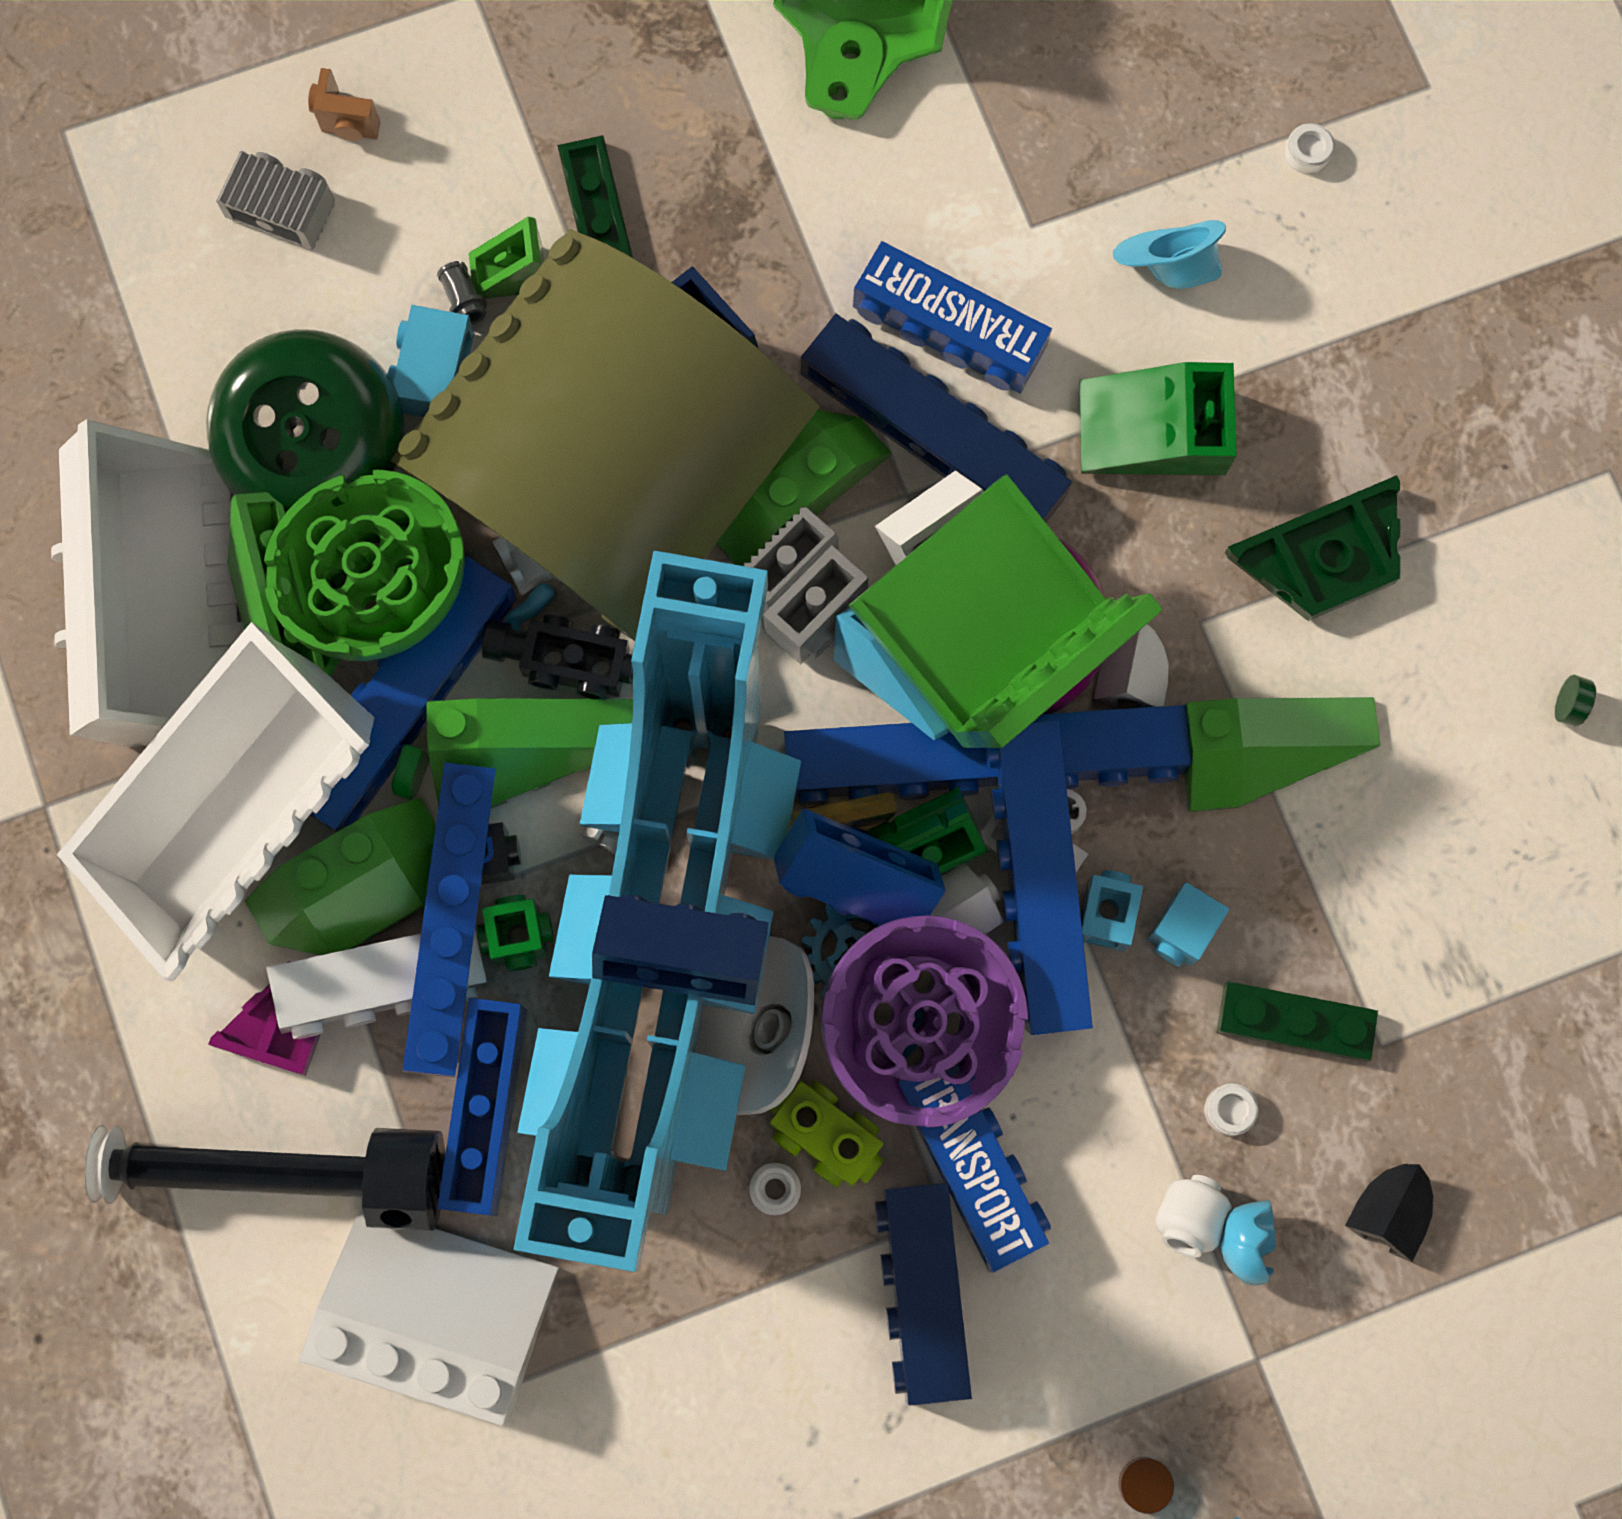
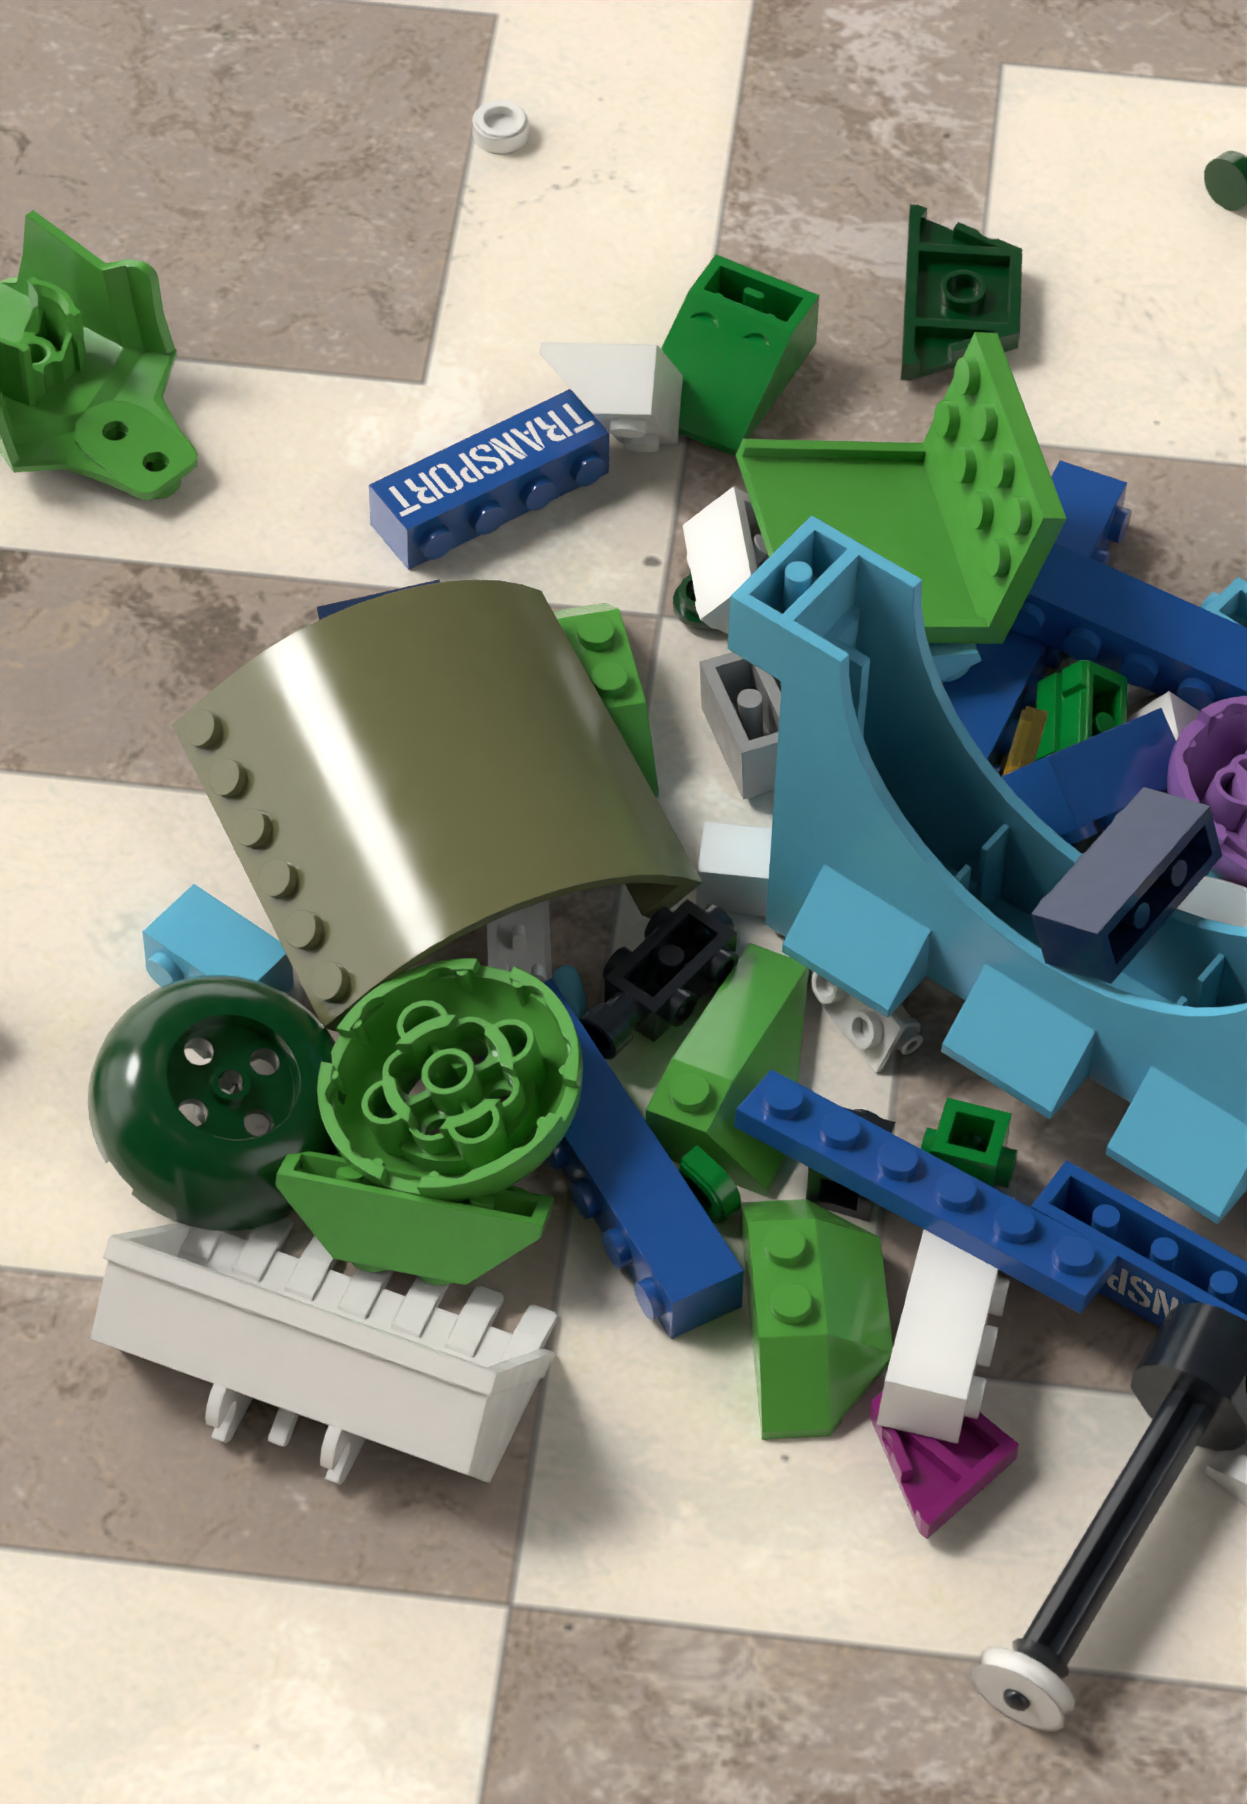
camera: 60 degrees left, 25 degrees down
(217, 797) = (672, 1323): white piece -> none
(461, 291) = (142, 899): dark grey pin -> none
(507, 260) = (146, 830): bright green slope -> none
(594, 192) = (111, 738): dark green tile -> none
(793, 552) = (688, 727): light grey brick -> none
(924, 416) = (598, 544): dark blue brick -> none
(1060, 362) = (625, 387): none -> white slope
(1176, 255) = (550, 266): medium azure piece -> none
(1267, 744) = (1138, 430): bright green wedge -> none

